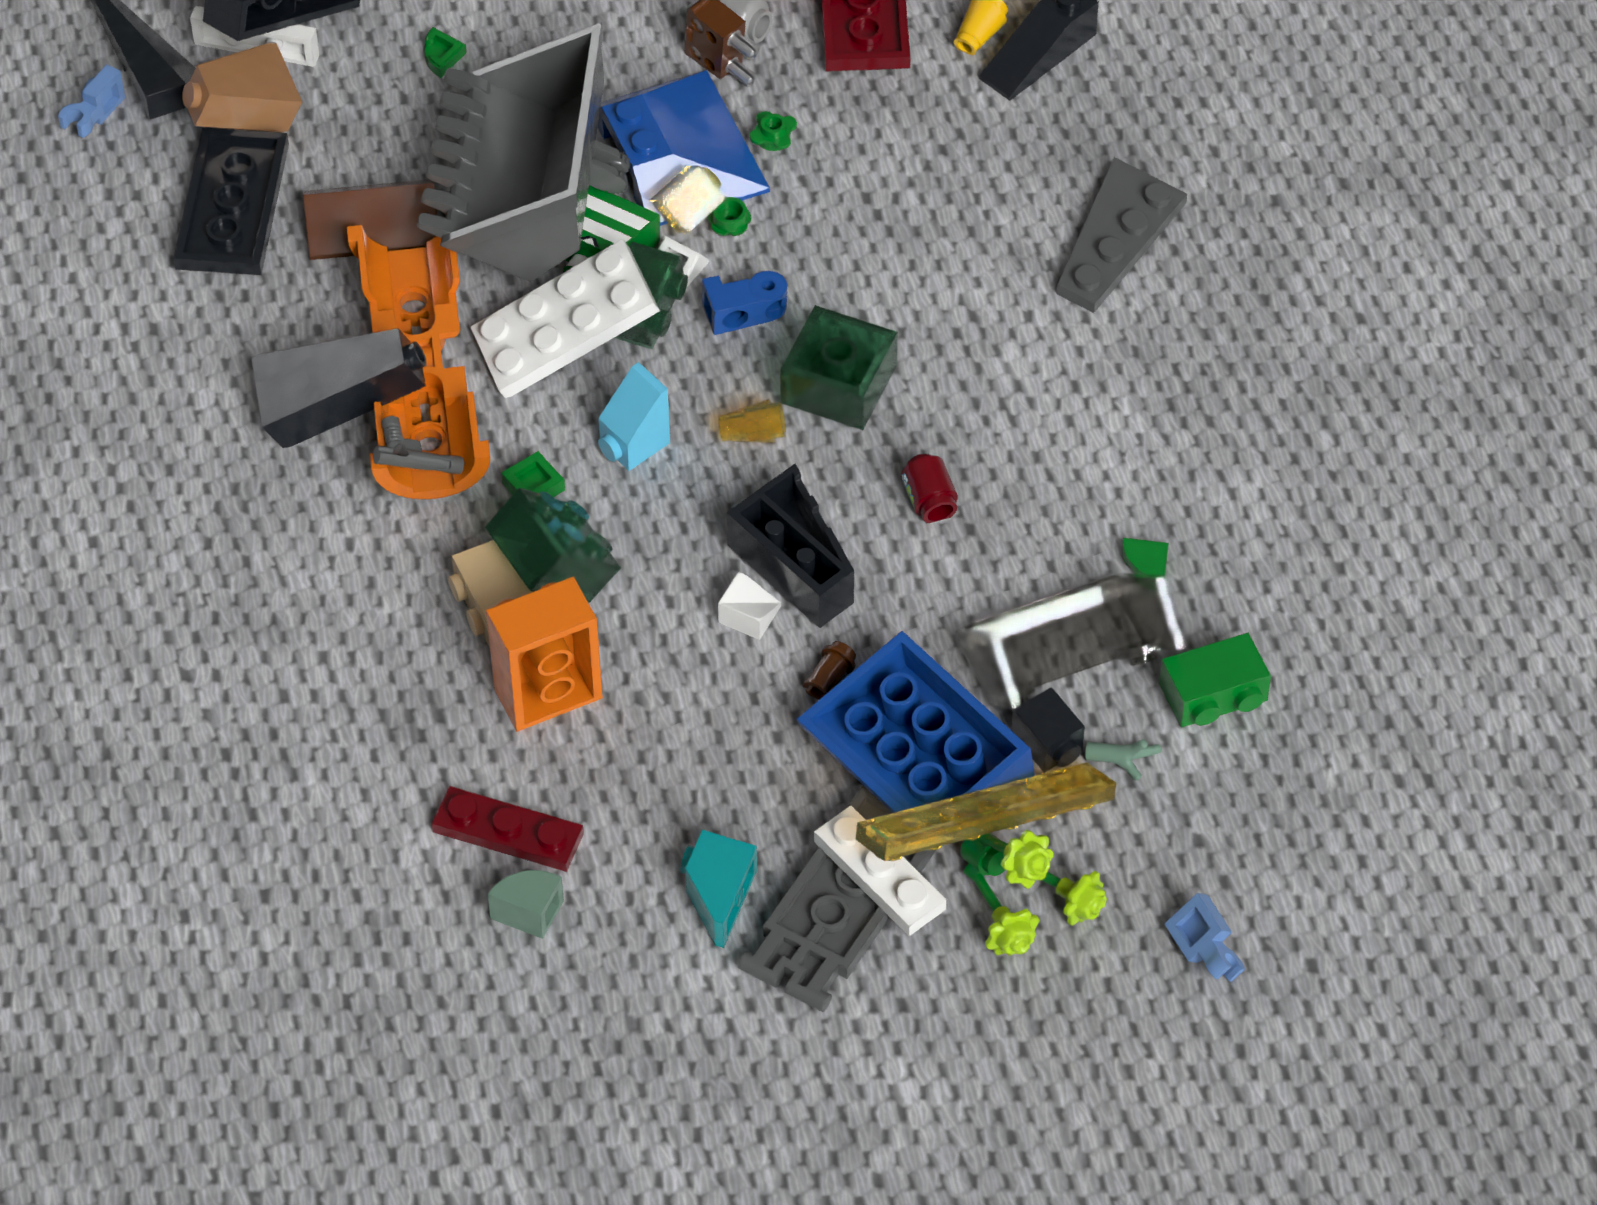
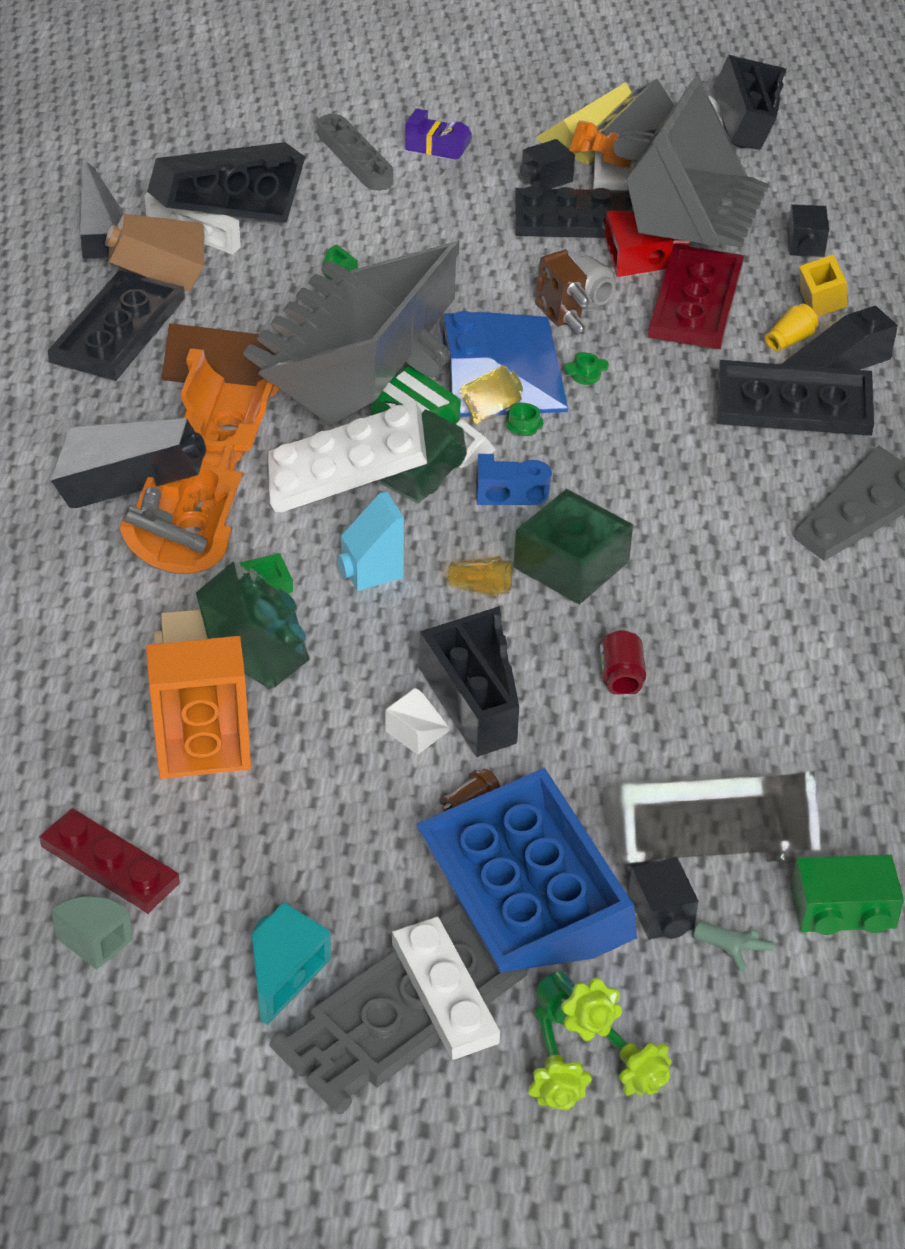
camera: 15 degrees right, 10 degrees down
(100, 99) = (49, 238): medium blue plate -> none
(985, 811) = (565, 953): clear yellow plate -> none
(1010, 117) = (795, 397): none -> black plate
(1145, 556) = (807, 761): green tile -> none
(1200, 936) = (758, 1140): medium blue plate -> none

